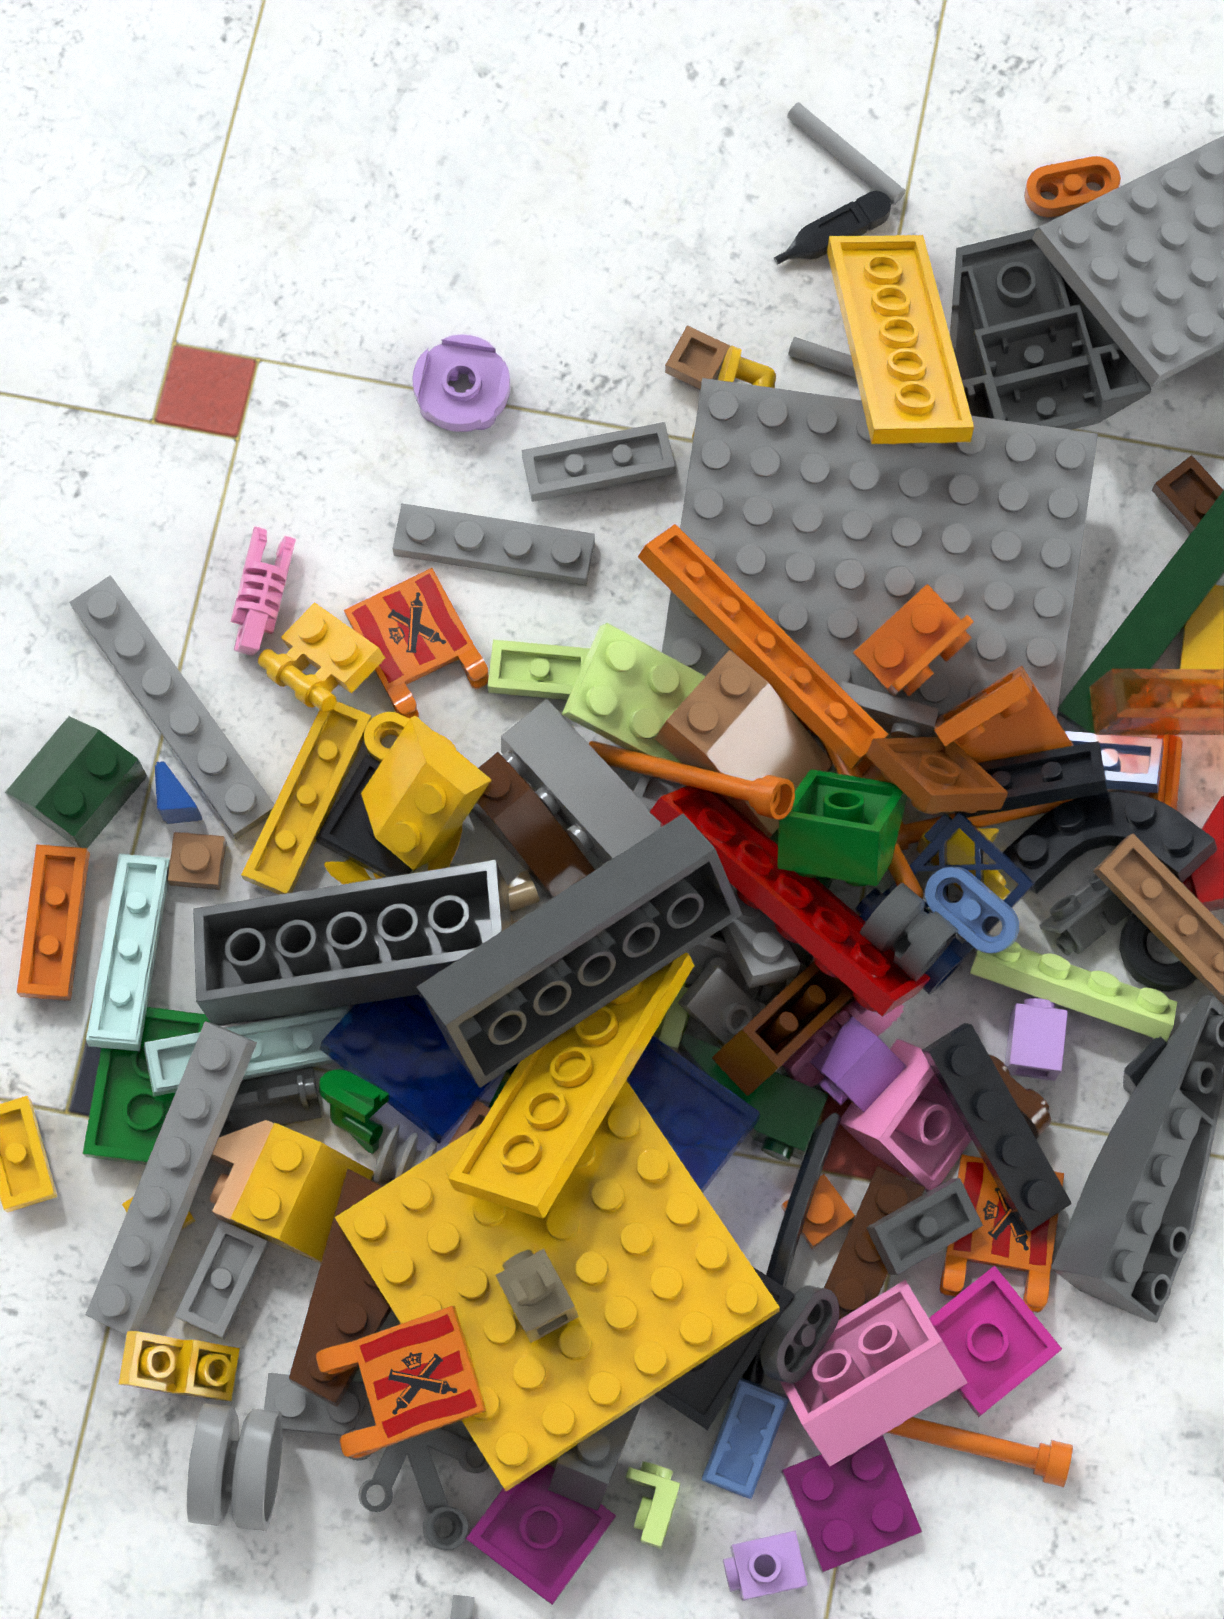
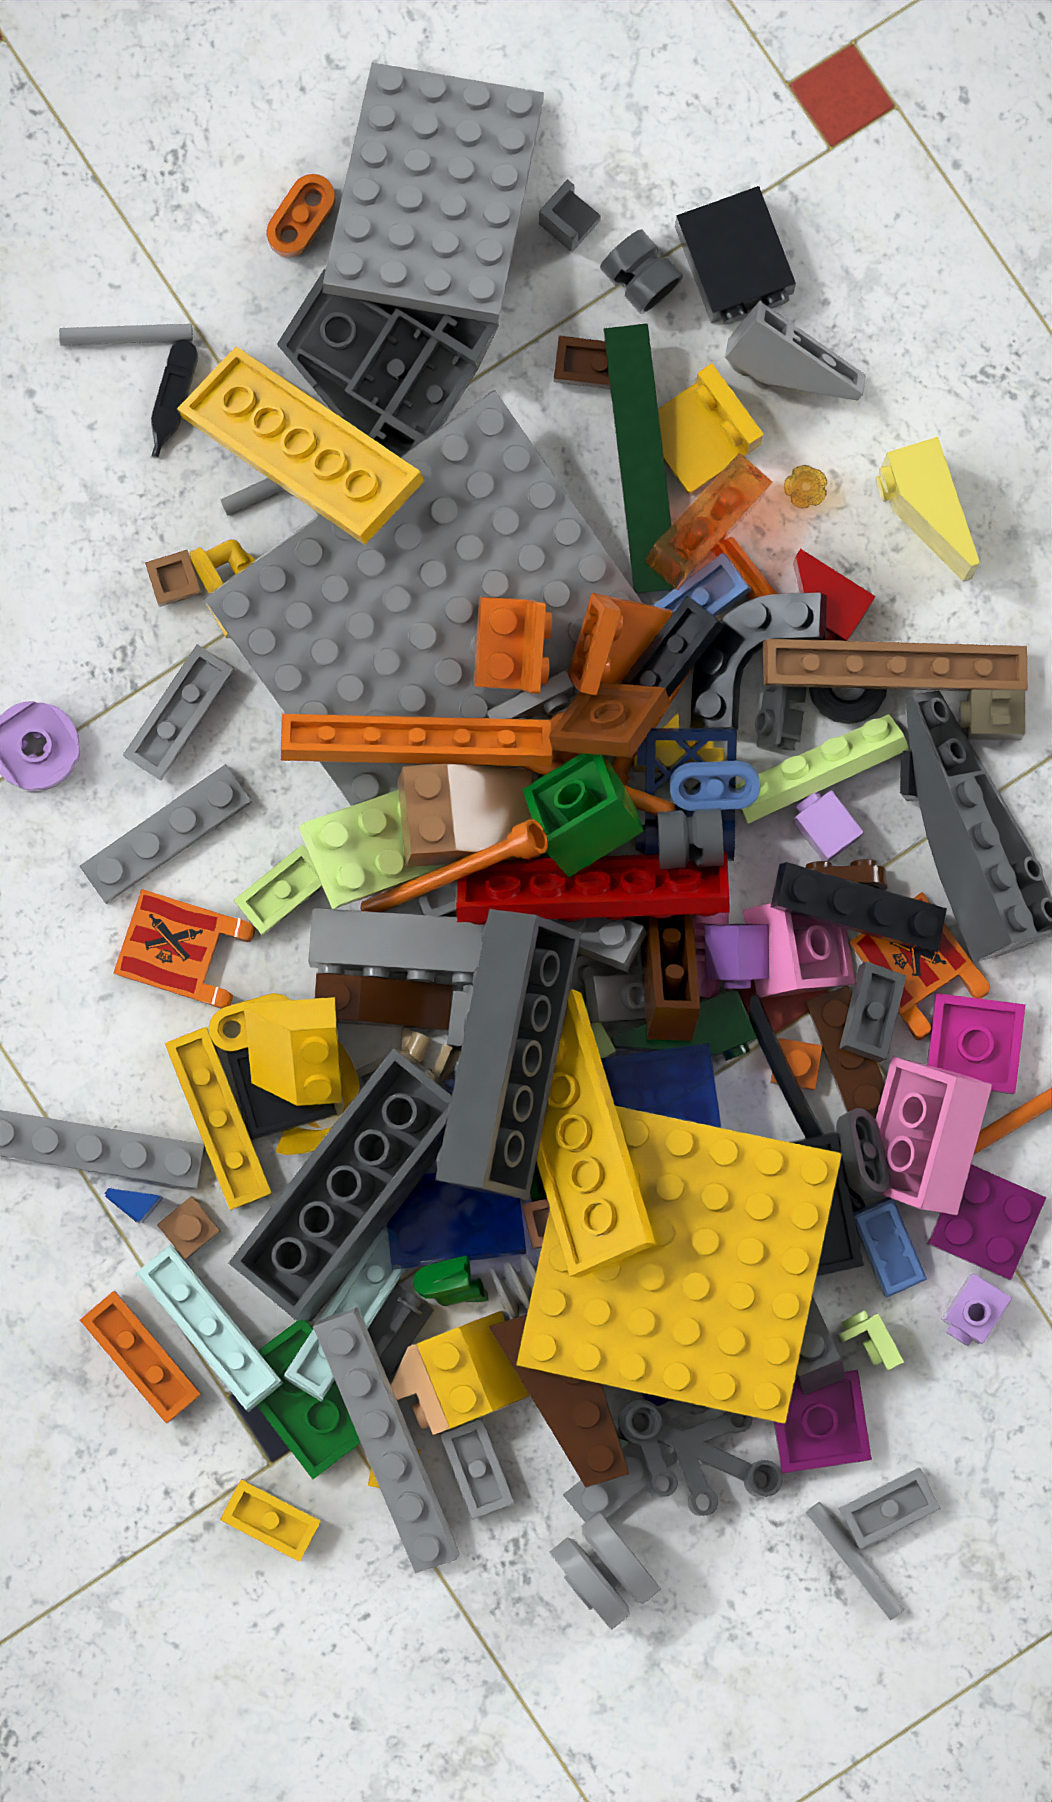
camera: 45 degrees left, 10 degrees up
(77, 782) = (58, 1254): dark green slope -> none
(179, 1366) = (504, 1545): yellow slope -> none
(260, 592) = (48, 1014): bright pink hinge -> none
(329, 646) = (135, 1007): yellow plate -> none
(413, 1378) = (666, 1413): flag -> none
(536, 1293) = (691, 1291): dark tan brick -> none

